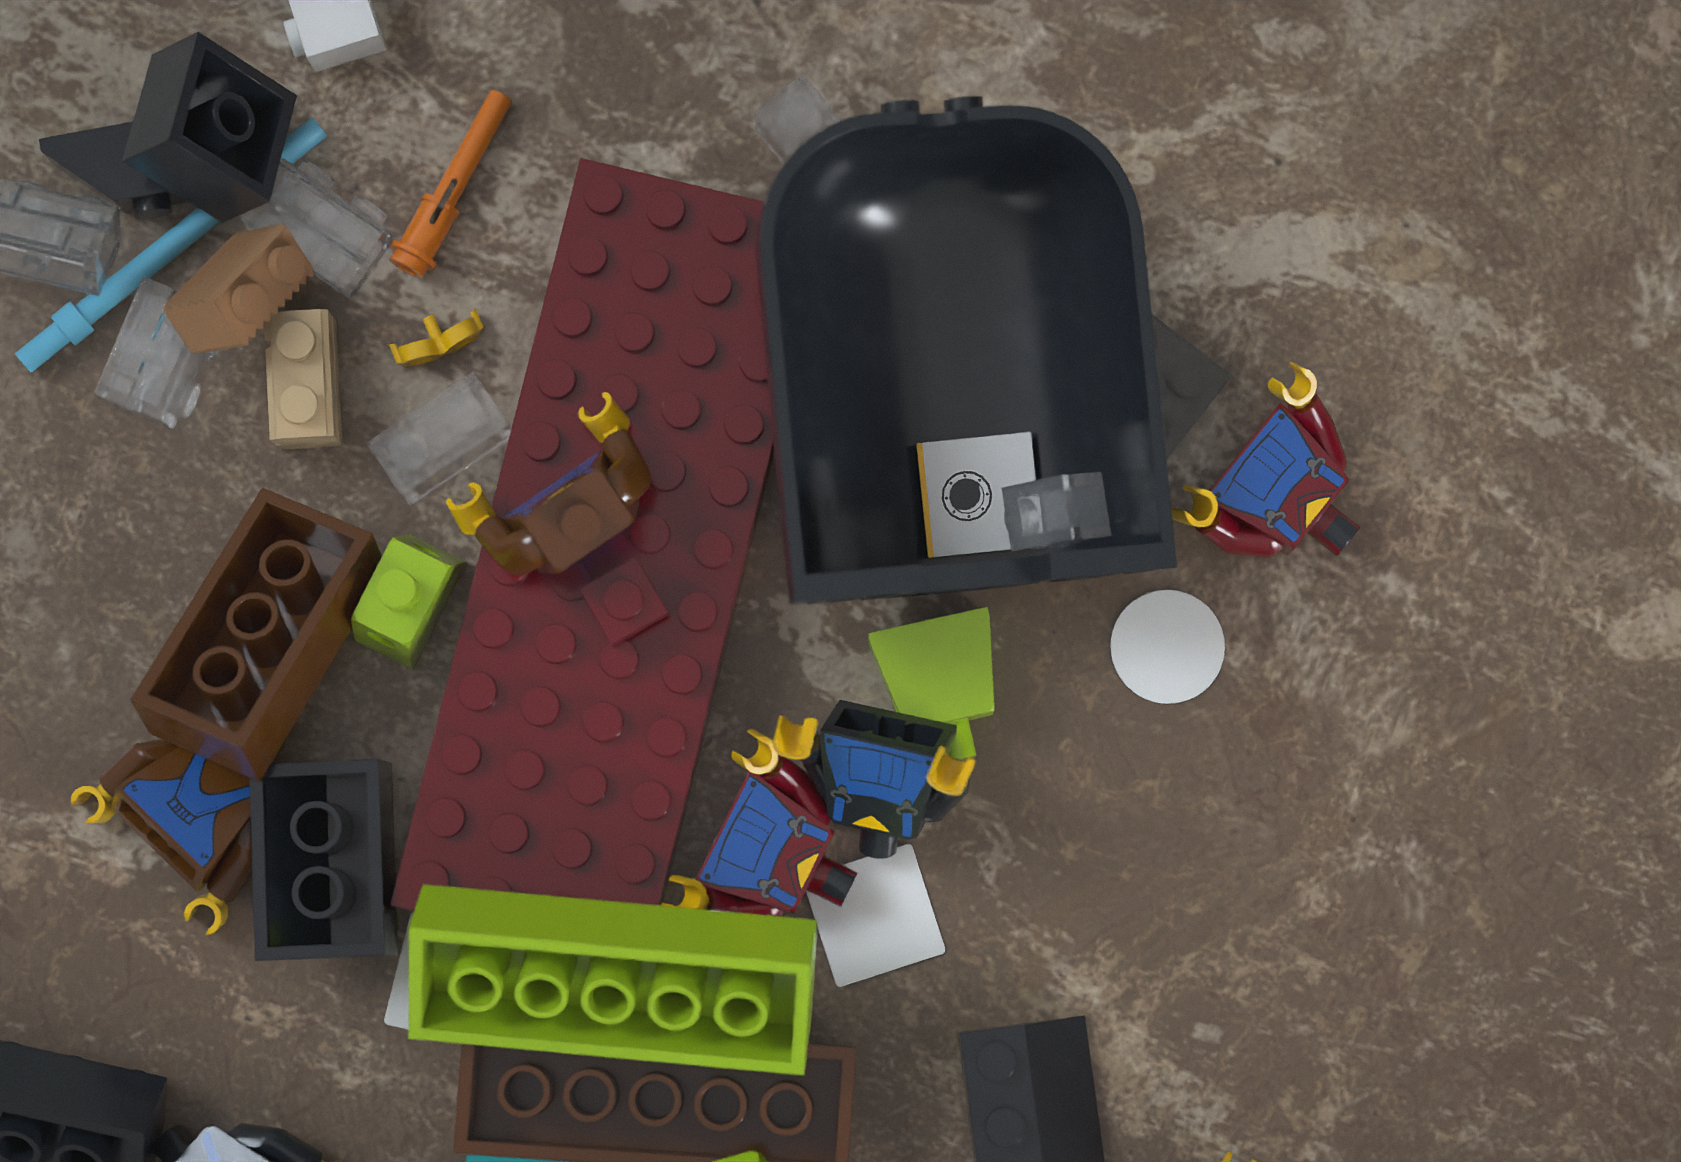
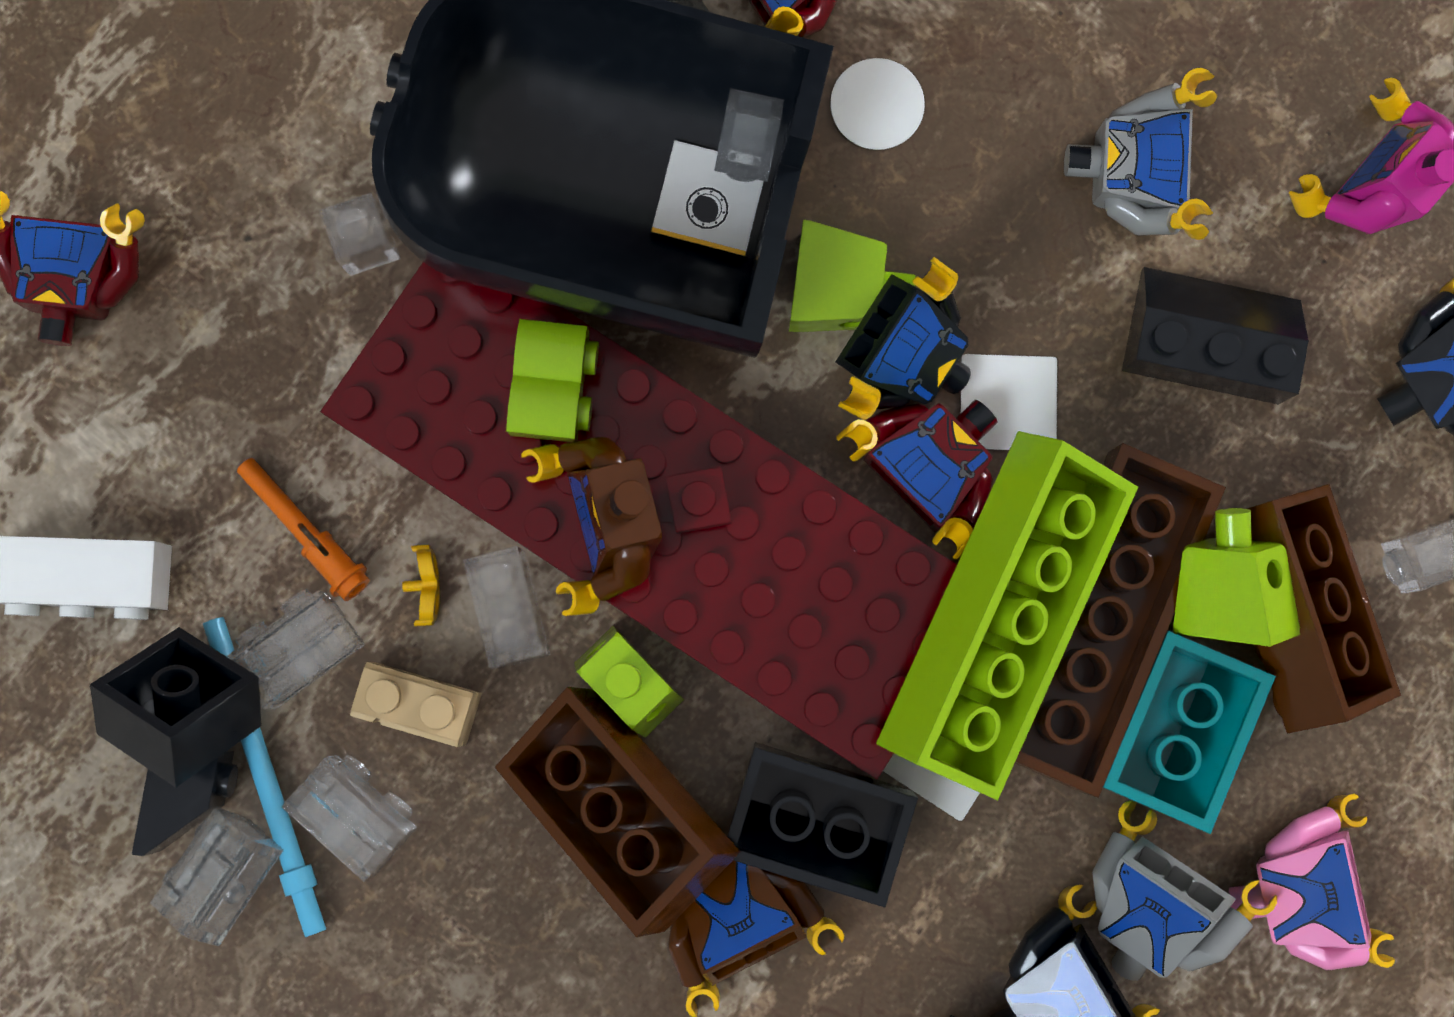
camera: 70 degrees left, 0 degrees up
(238, 289) = (322, 729): medium nougat brick -> none
(694, 394) = (549, 381): none -> lime brick
(1201, 971) = (1145, 161): none -> torso

